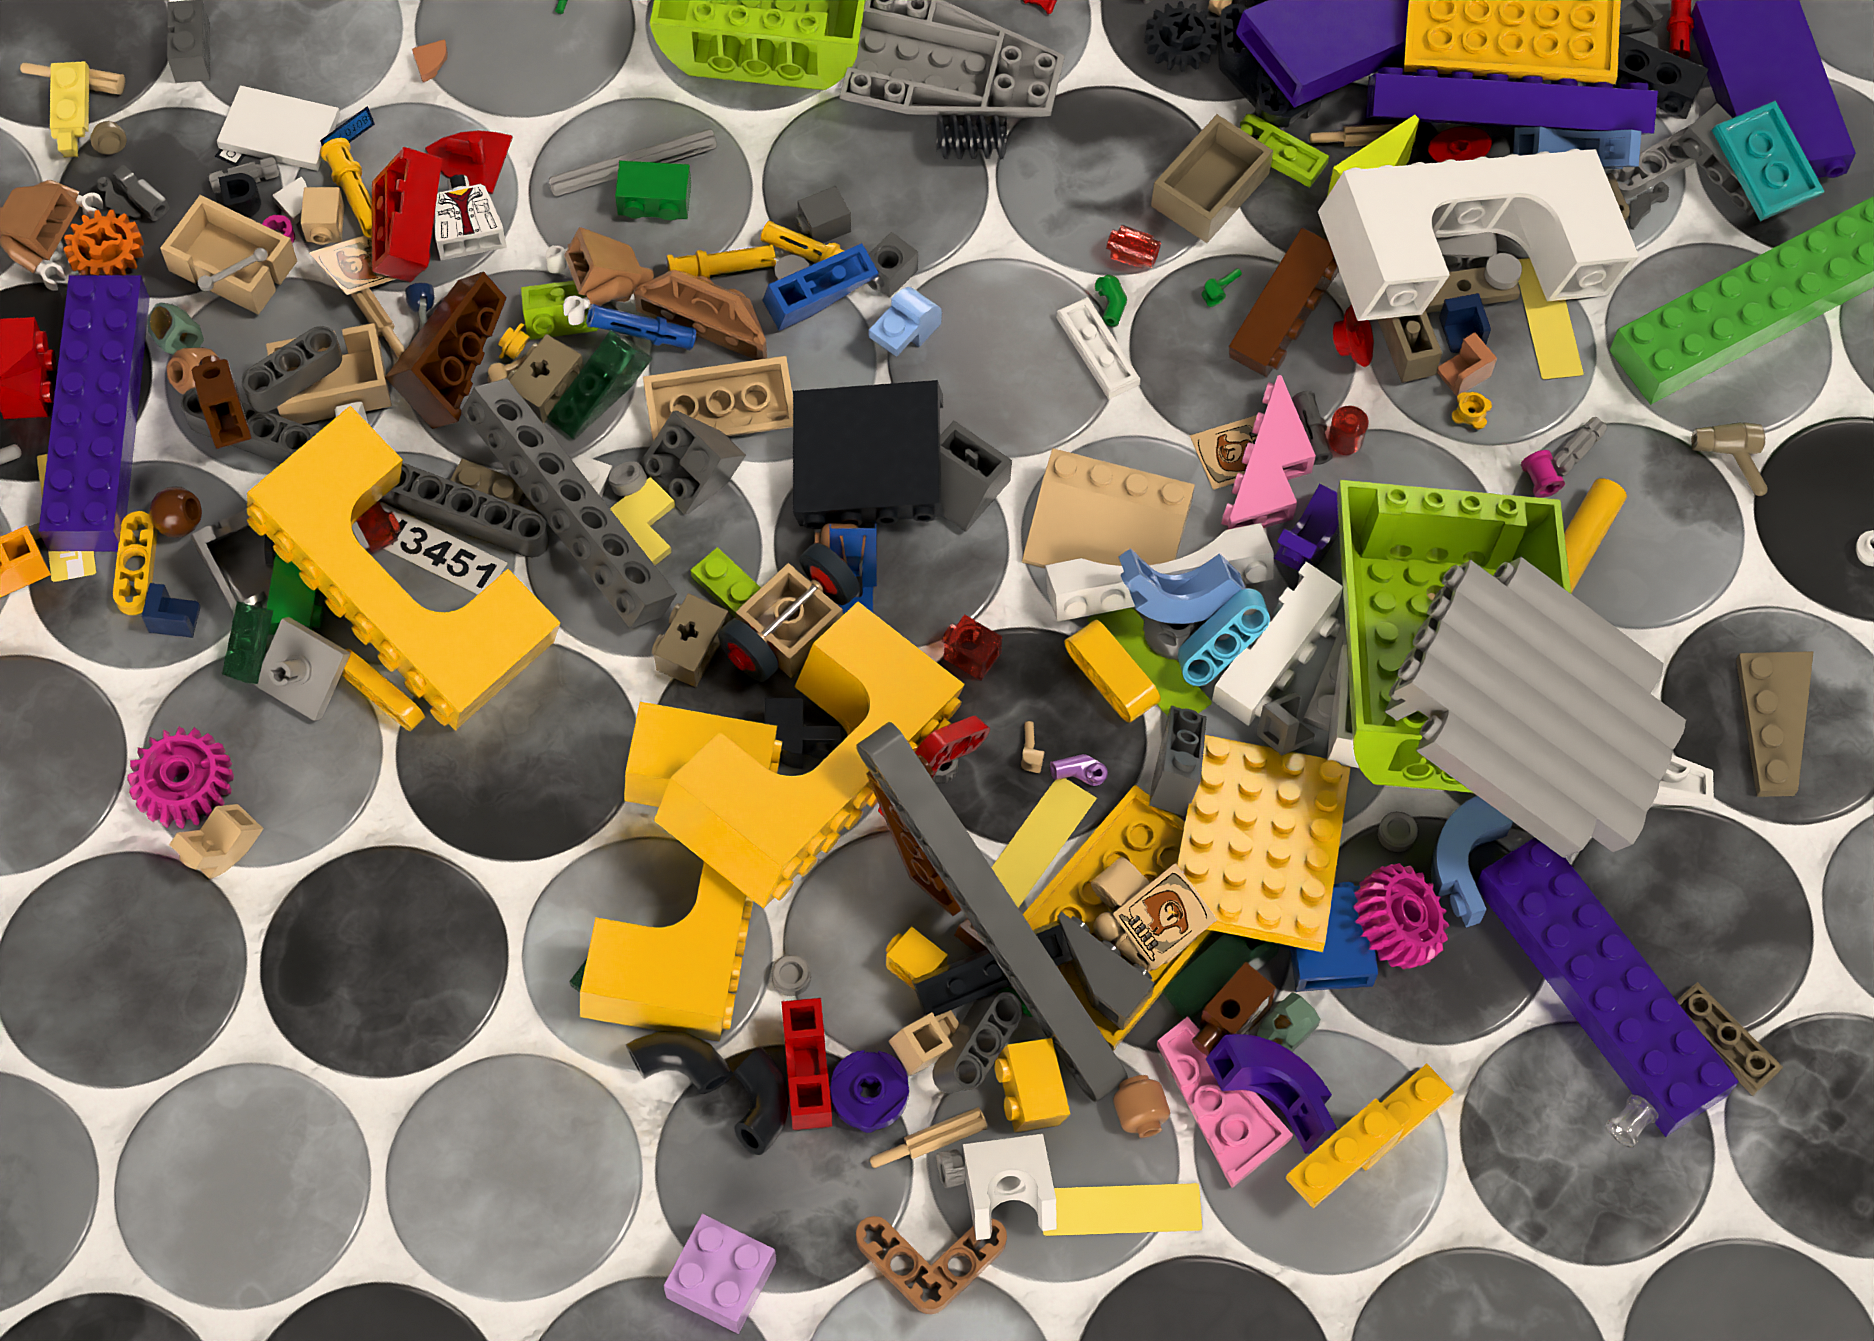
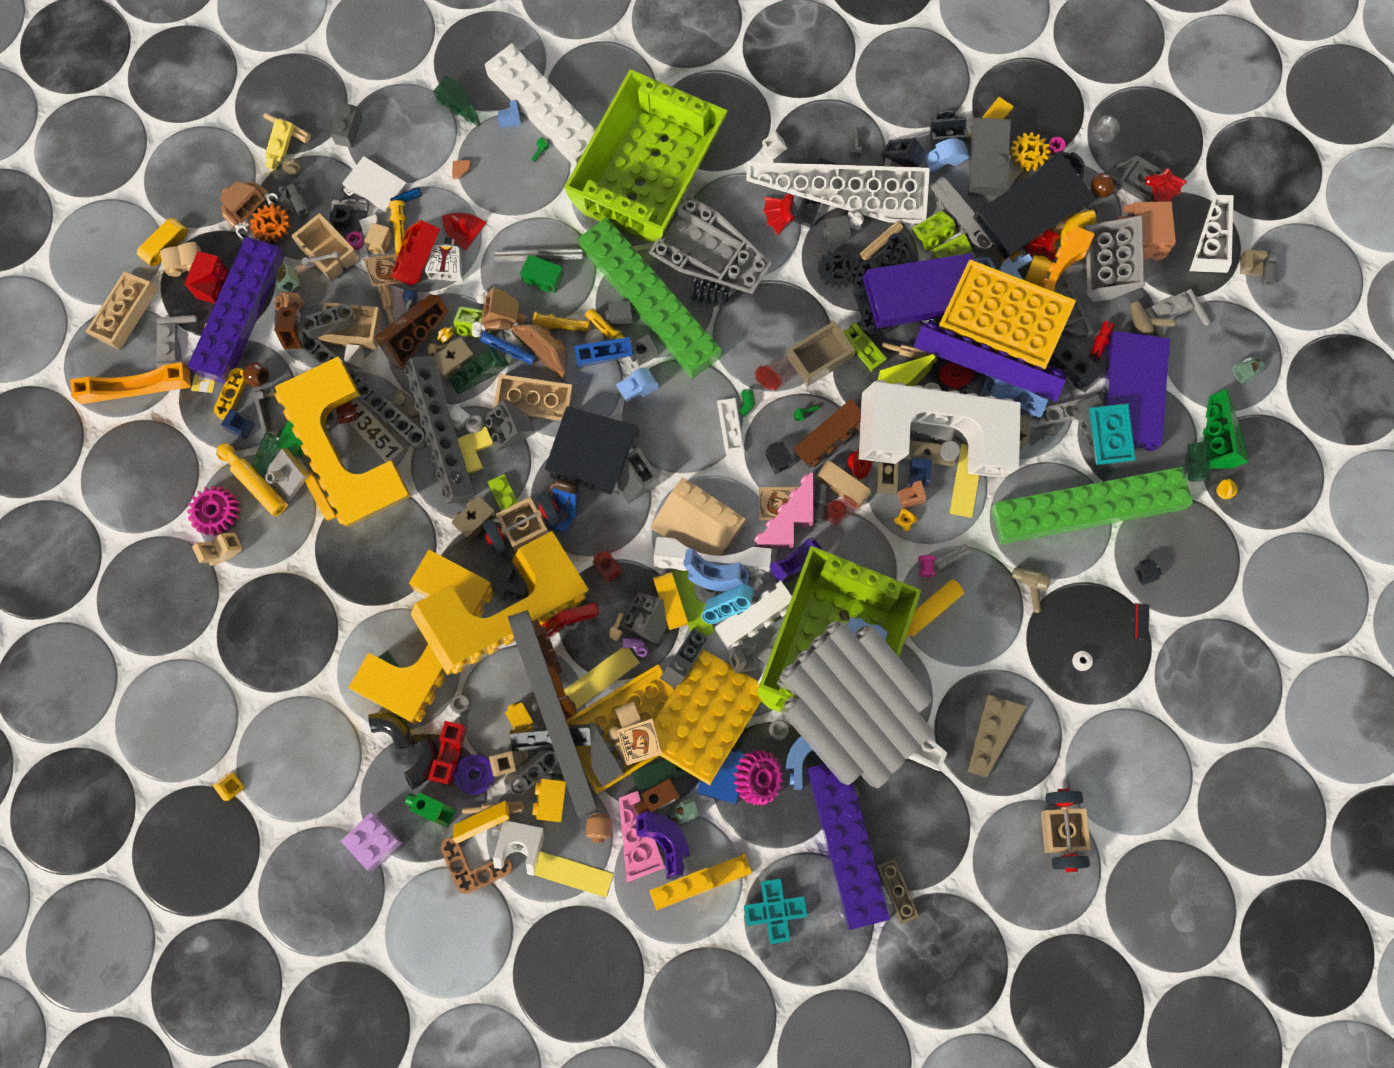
camera: 25 degrees right, 10 degrees up
(236, 700) = (252, 480): none -> yellow piece
(395, 1269) = (228, 786): none -> yellow slope
(812, 1174) = (430, 809): none -> green torso
(871, 172) = (650, 298): none -> bright green brick
(918, 1165) = (481, 822): none -> yellow tile
(1081, 712) = (646, 617): none -> dark grey slope
(1207, 372) = (778, 457): none -> black brick
(1340, 382) = (843, 484): none -> tan beam
(1524, 1145) = (775, 911): none -> teal plate

